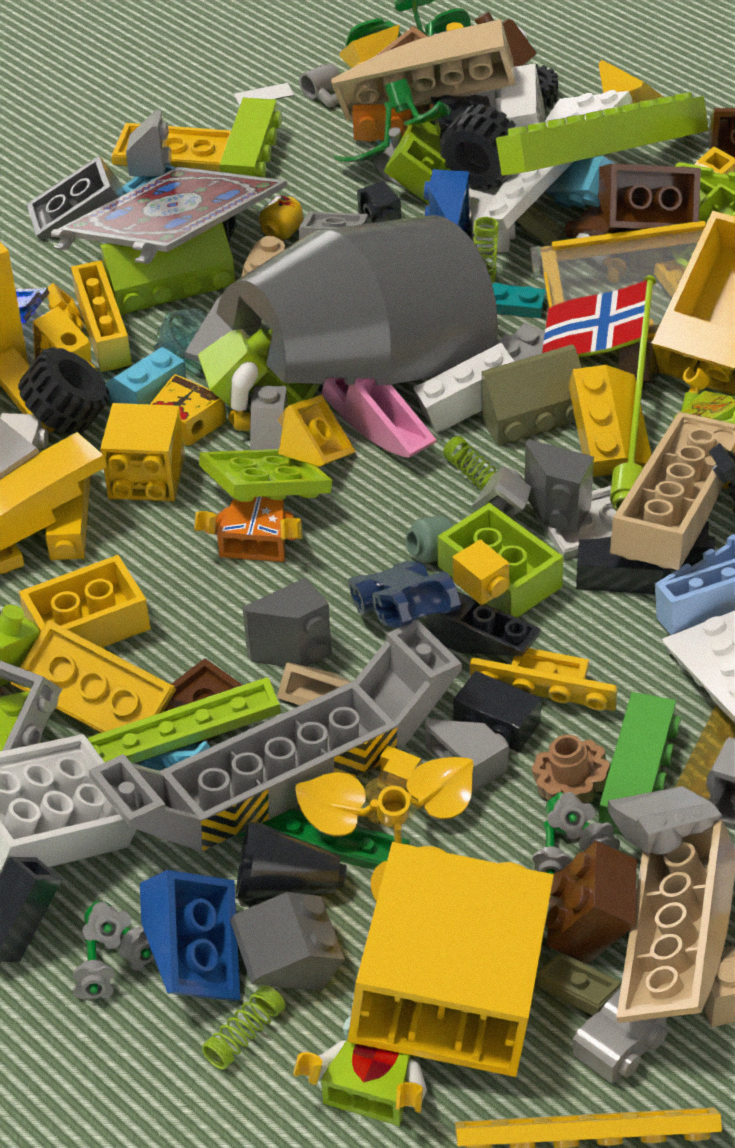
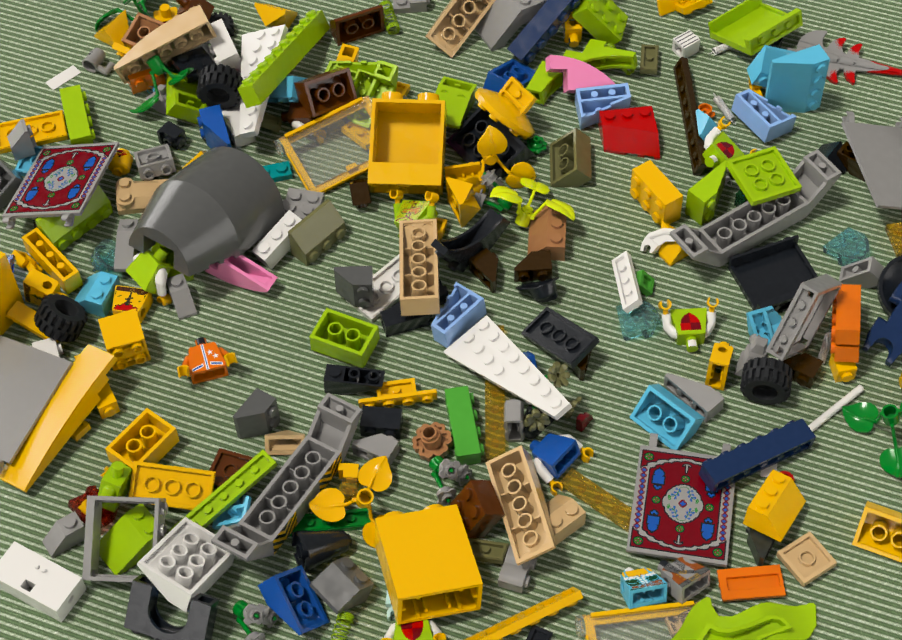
camera: 25 degrees left, 10 degrees up
(263, 474) = (197, 329): lime plate -> none
(313, 433) = (210, 296): yellow slope -> none
(404, 593) = (309, 377): dark blue piece -> none
(422, 537) = (300, 335): sand green head -> none
(462, 454) = (317, 291): lime piece -> none
(481, 572) = (344, 352): yellow brick -> none
(483, 233) = (248, 142): lime piece -> none
(504, 491) = (329, 297): light grey slope -> none
(599, 326) = (335, 180): flag -> none
(603, 417) = (363, 235): yellow slope -> none
(662, 818) = (493, 453): light grey slope -> none

